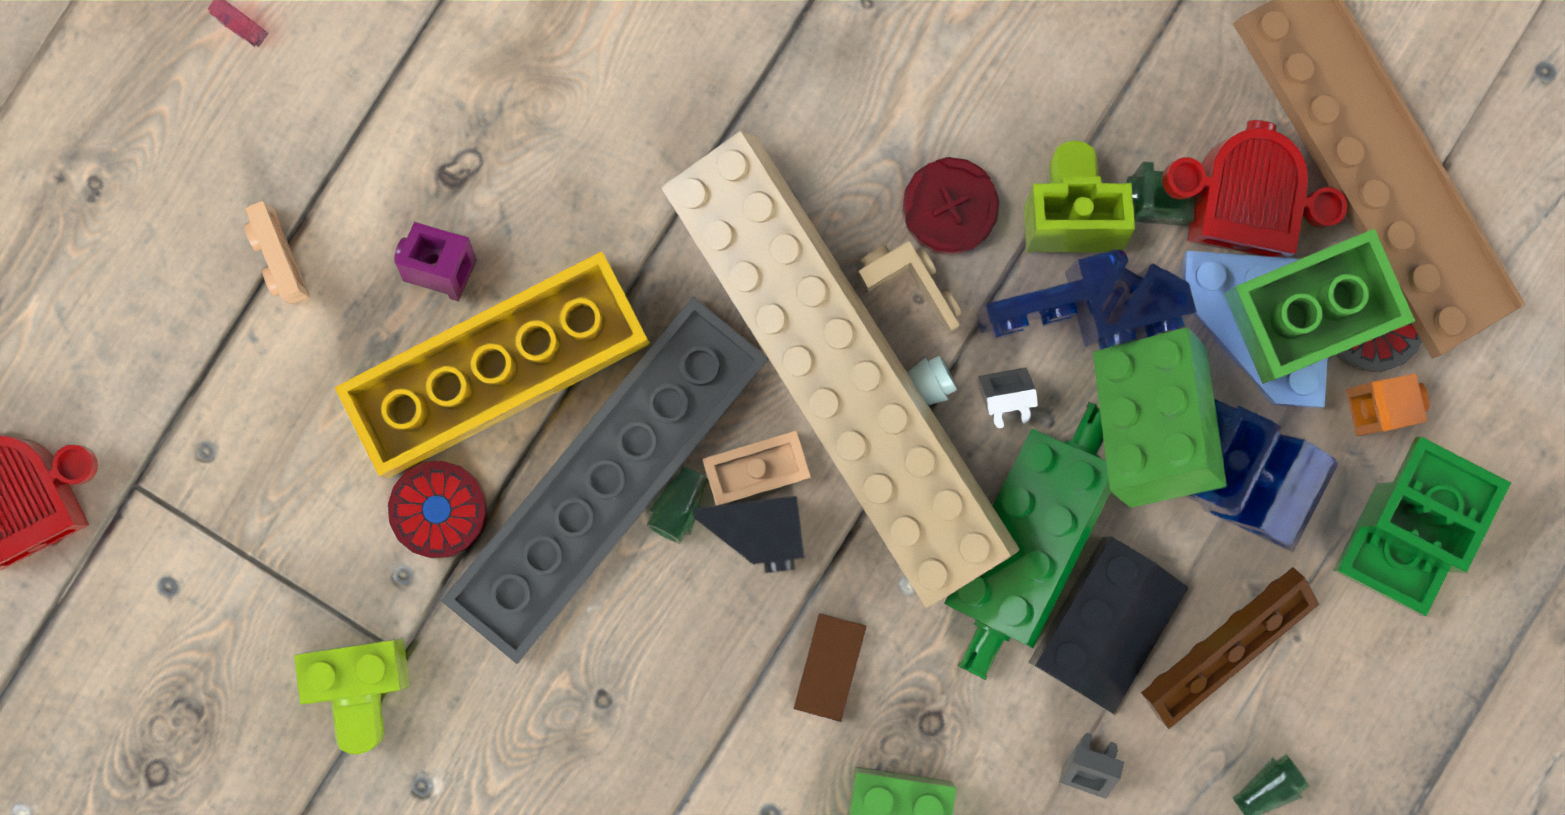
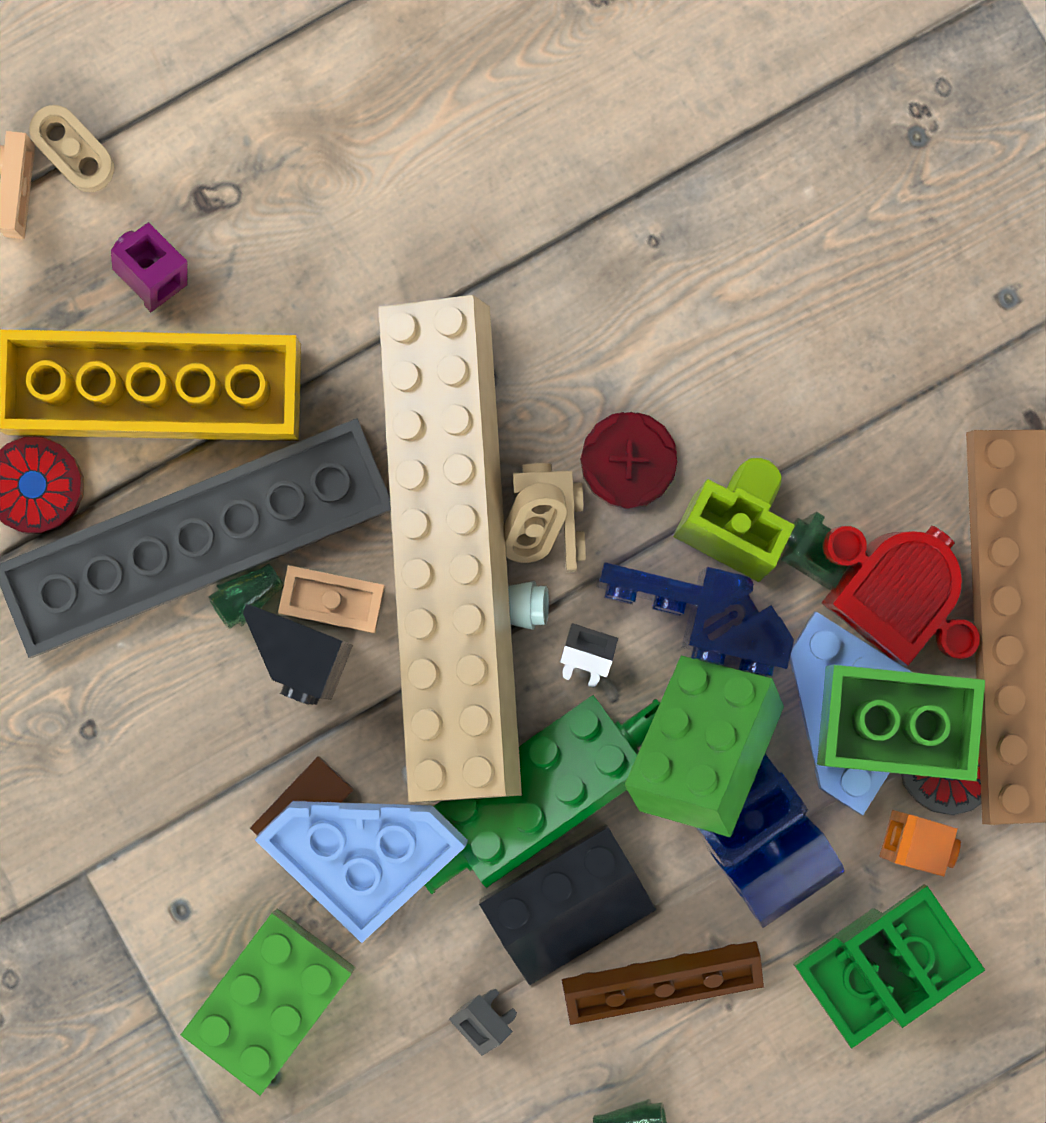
camera: 25 degrees right, 0 degrees up
(311, 194) = (73, 149): none -> tan plate
(900, 303) = (534, 522): none -> tan plate
(907, 680) = (361, 855): none -> light blue plate

